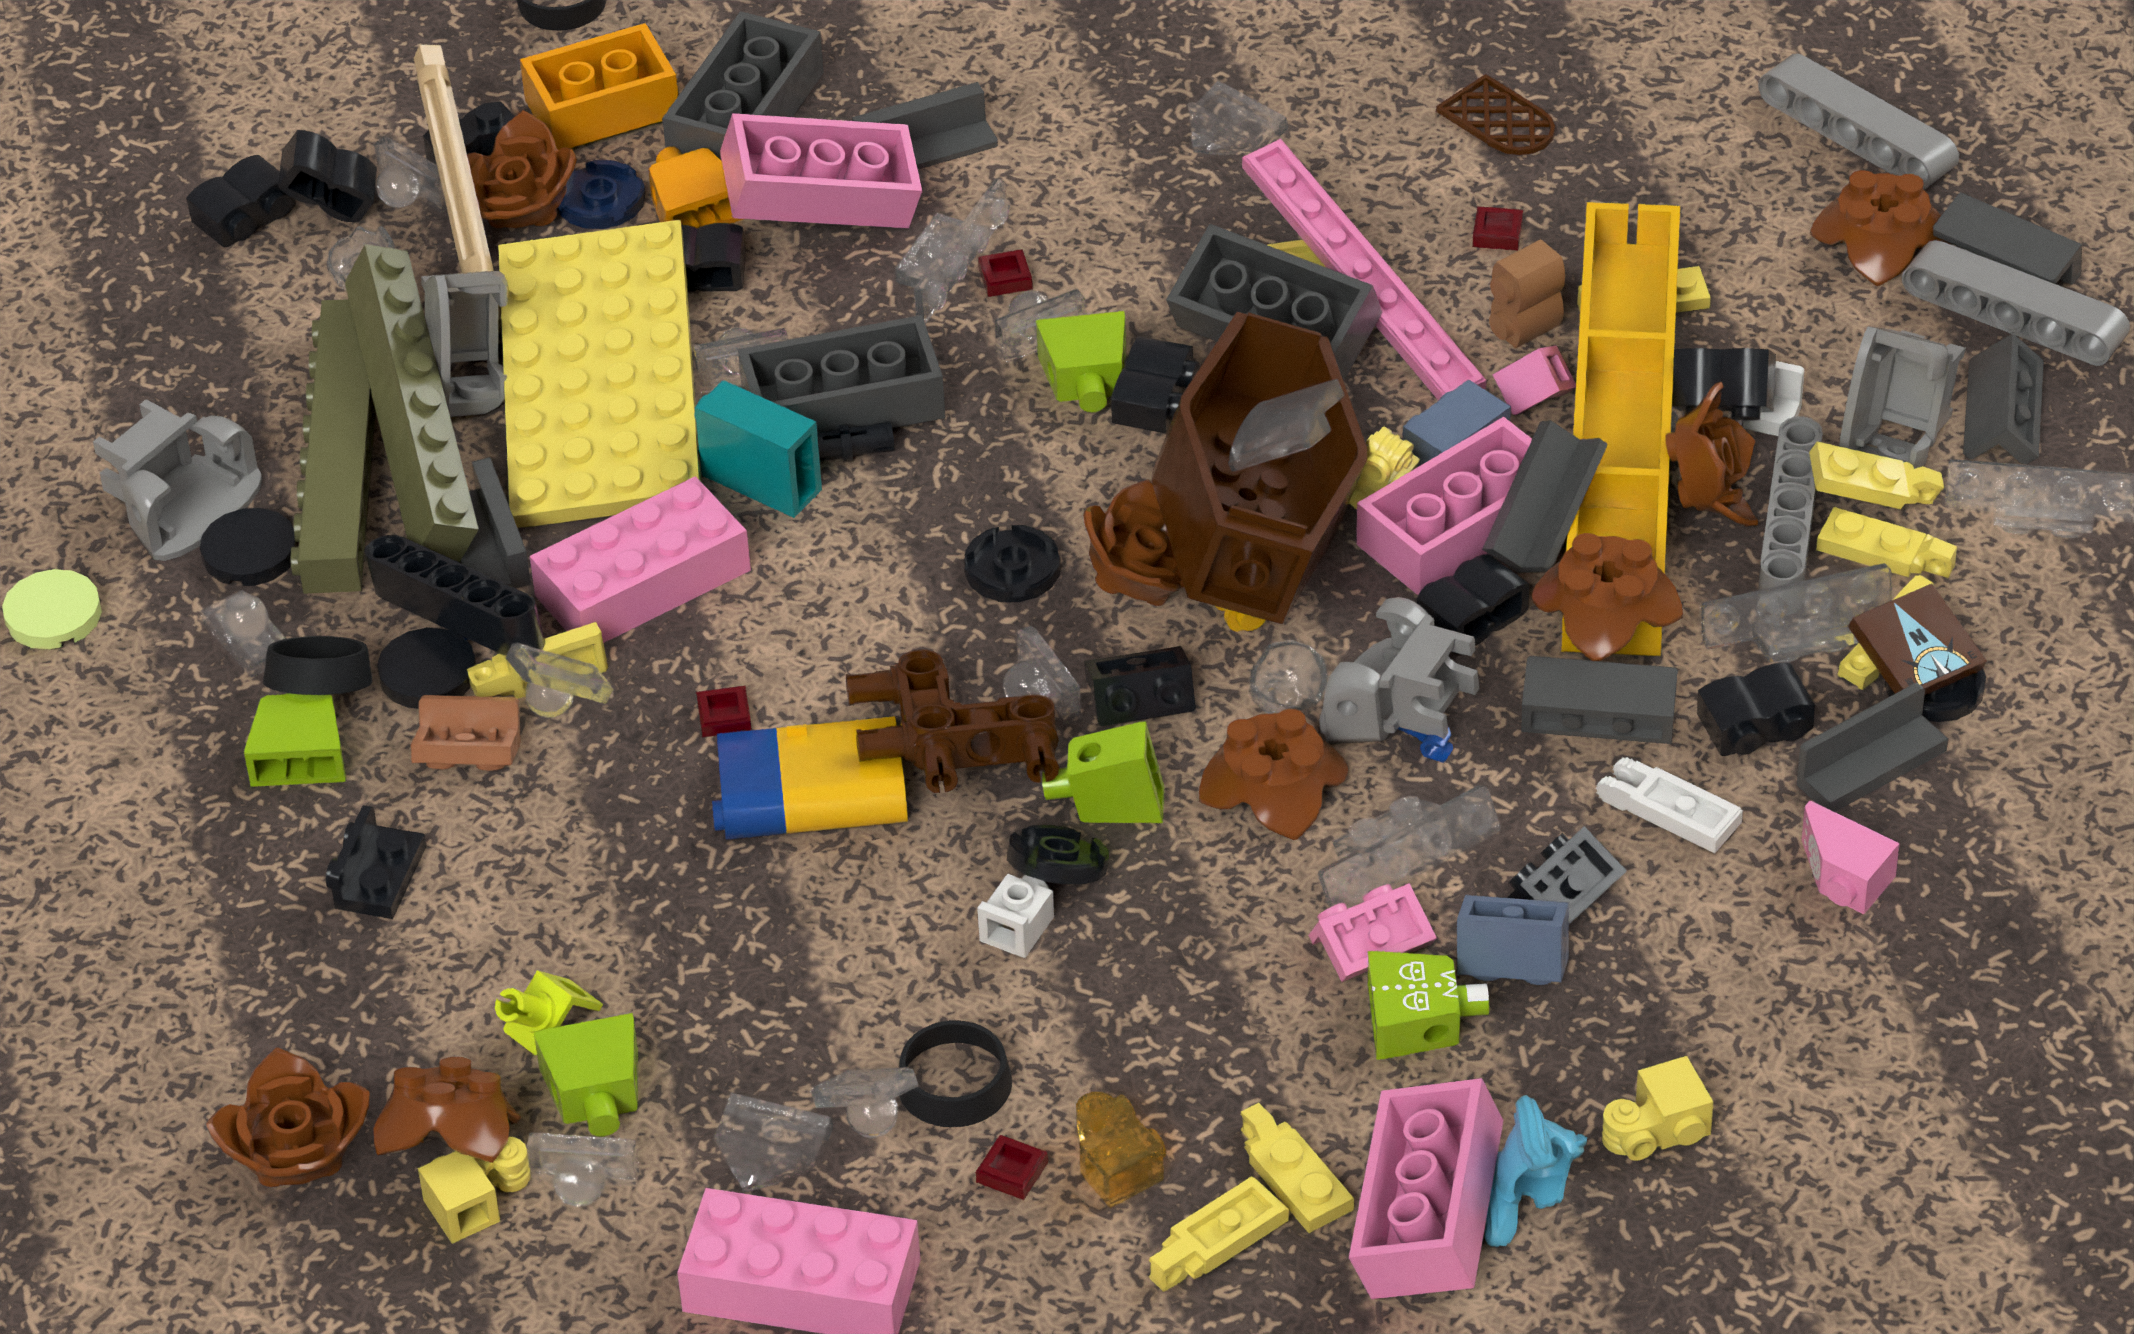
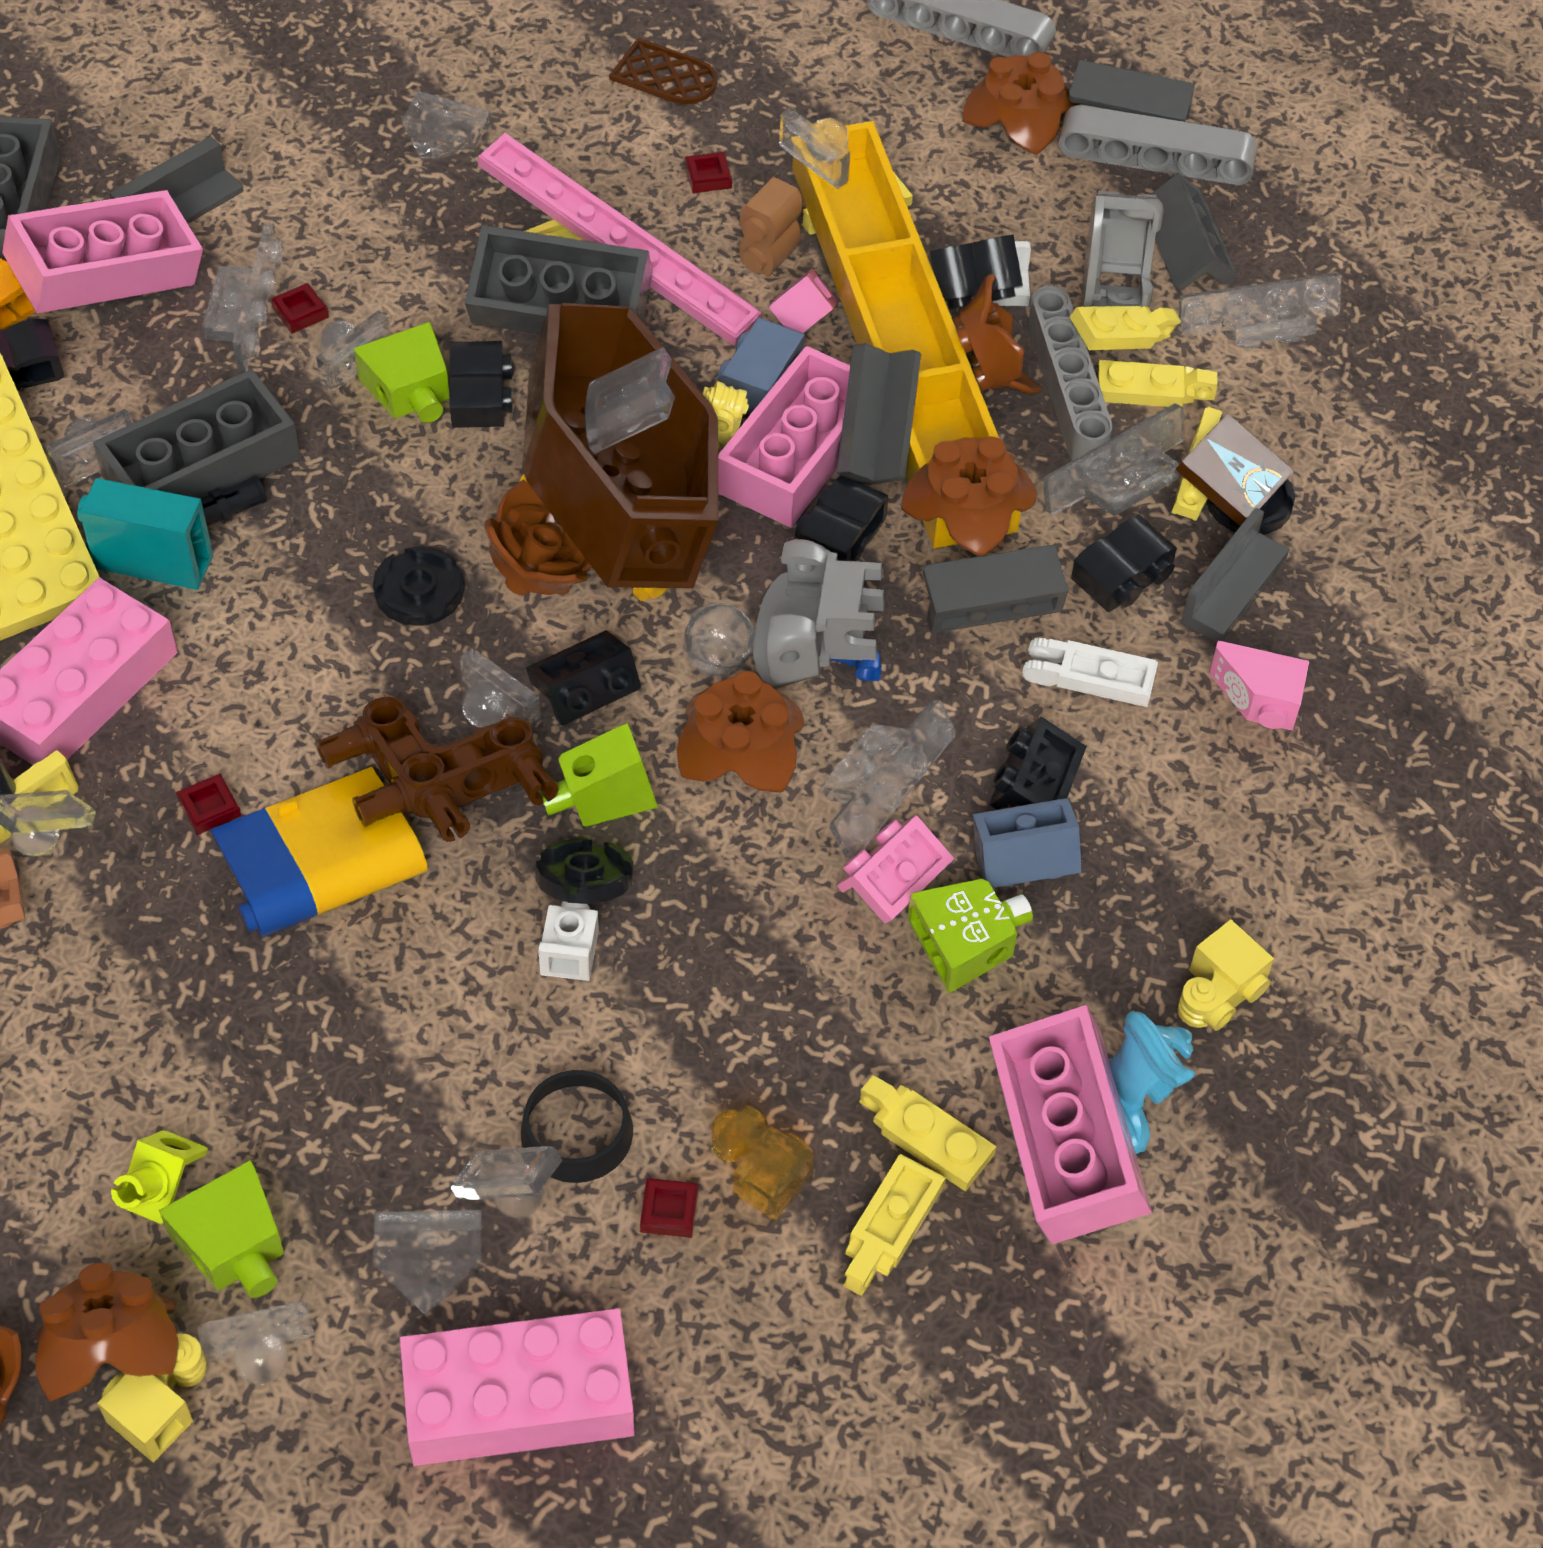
camera: 25 degrees left, 10 degrees up
(1600, 217) = (817, 145): none -> clear tile

